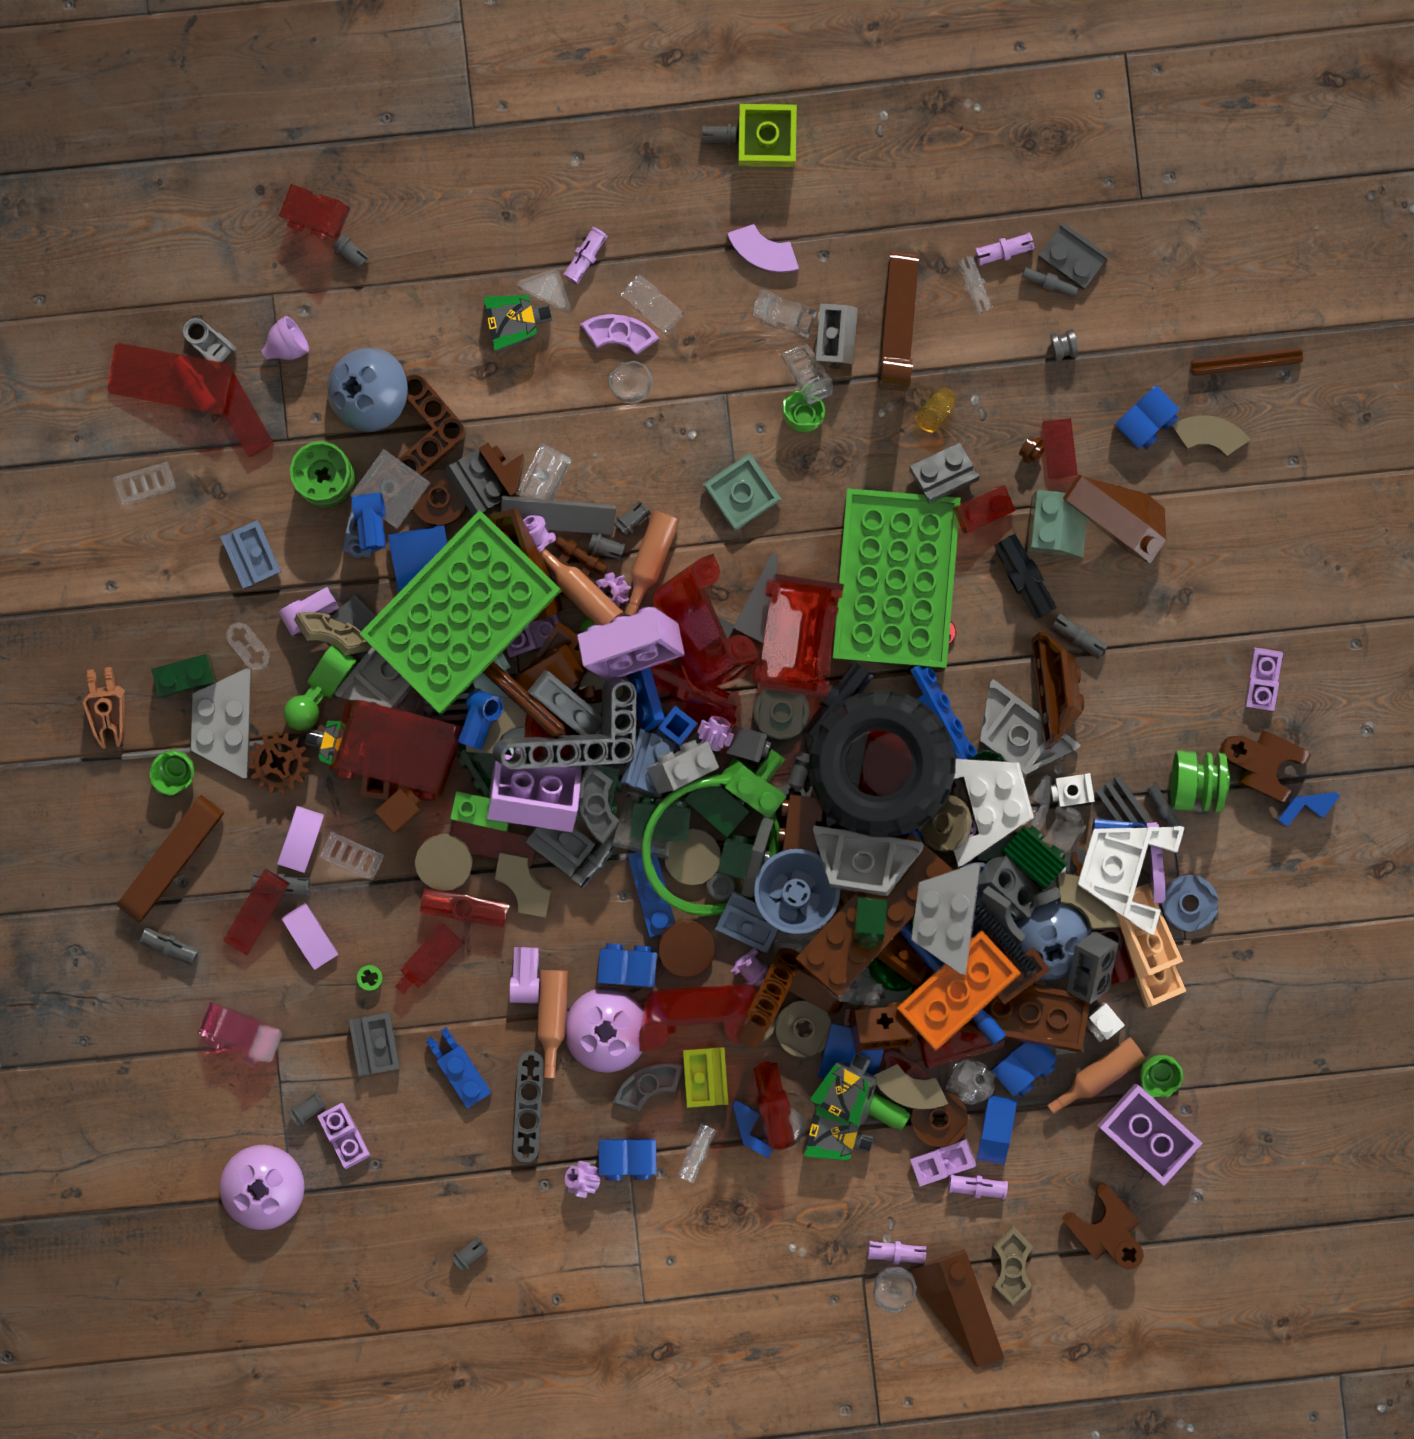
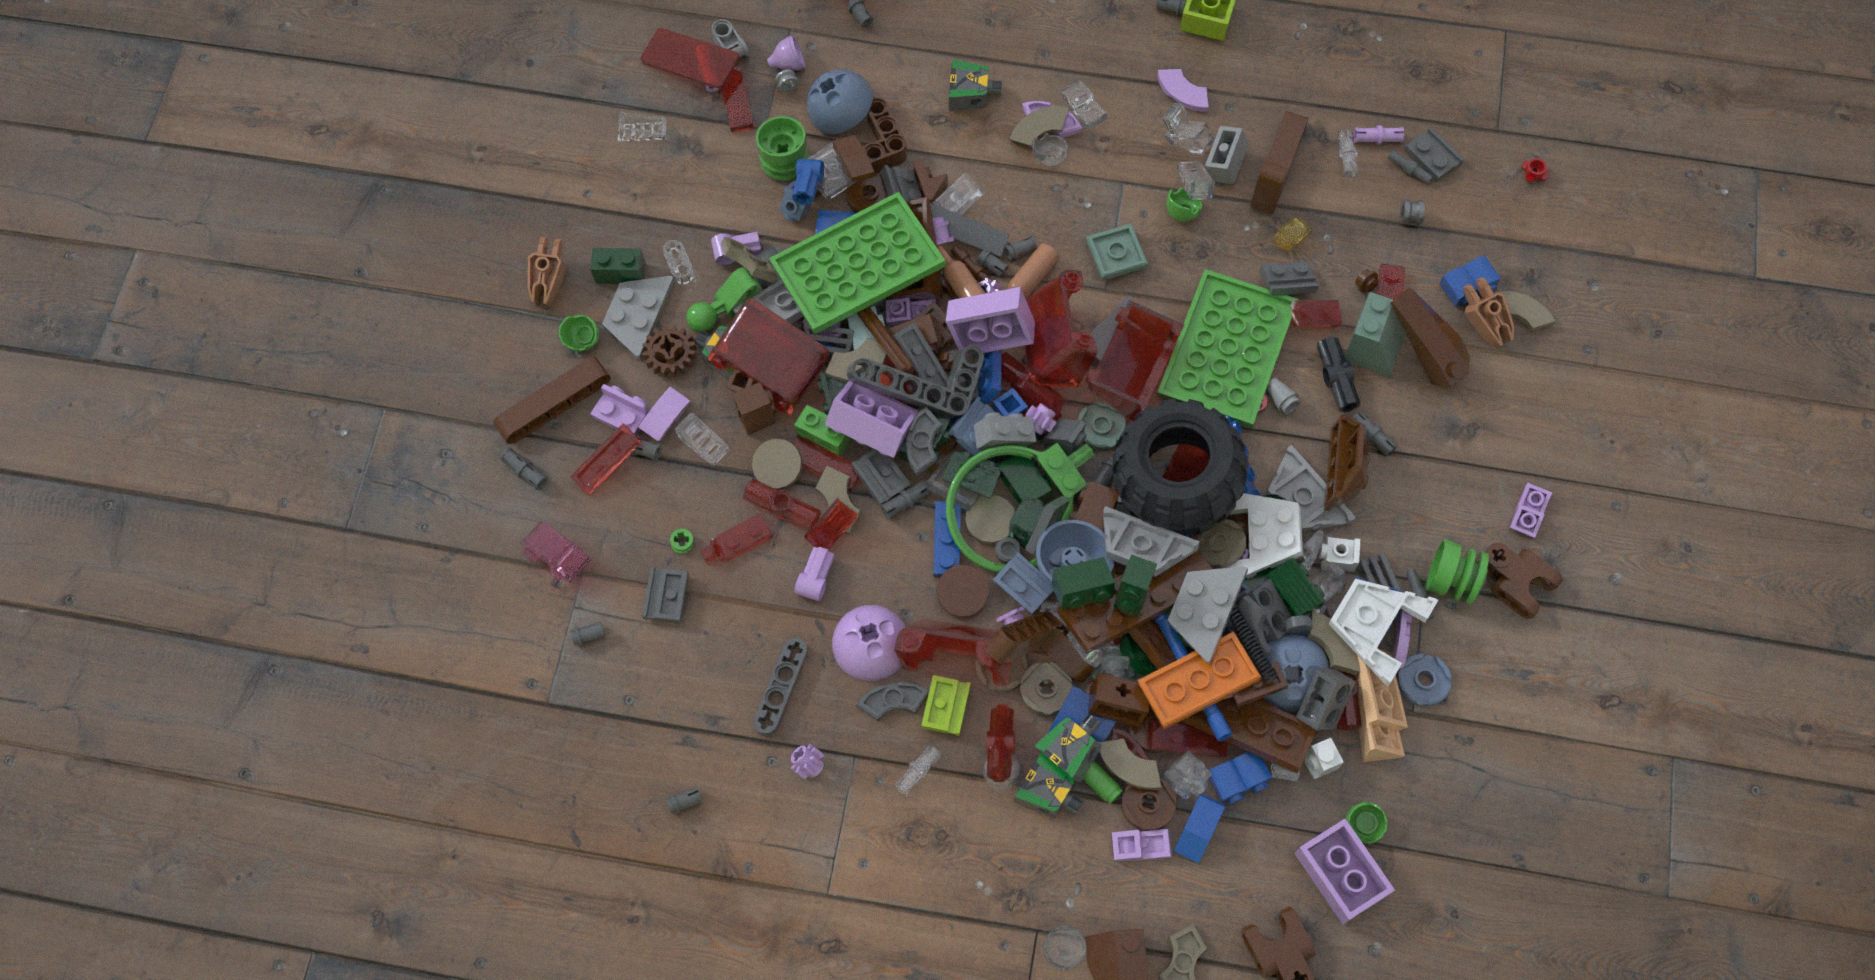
camera: 20 degrees right, 20 degrees down
(249, 850) = (618, 408): none -> lavender bracket
(251, 554) = (705, 195): sand blue plate -> none
(278, 1180) = (533, 698): lavender piece -> none
(294, 373) = (787, 80): none -> light grey bush
(309, 936) = (643, 492): lavender slope -> none
(344, 1135) = (611, 665): lavender slope -> none
(413, 477) = (854, 158): none -> reddish brown slope
(460, 1070) = (732, 640): blue hinge -> none
(482, 710) = (843, 347): blue piece -> none
(526, 919) = (831, 525): none -> clear red plate
(547, 288) = (1004, 69): clear slope -> none
(552, 1015) = (827, 612): nougat piece -> none
(585, 255) = (1041, 58): lavender pin -> none
(608, 349) = (1038, 123): none -> dark tan tile
(627, 967) = (905, 591): blue brick -> none
(627, 1157) = (854, 755): blue brick -> none
(746, 1119) = (972, 752): blue slope -> none
(815, 930) = (1083, 583): none -> dark green brick
(896, 1252) = (1076, 915): lavender pin -> none
(970, 620) = (1283, 397): none -> light grey cone
(977, 1186) = (1168, 876): lavender pin -> none
(1101, 1074) = (1310, 805): nougat piece -> none
(1174, 456) = (1489, 314): none -> nougat hinge
(1191, 253) = (1537, 165): none -> red plate
(1246, 361) = (1563, 264): reddish brown axle -> none
(1316, 804) = (1556, 622): blue slope -> none

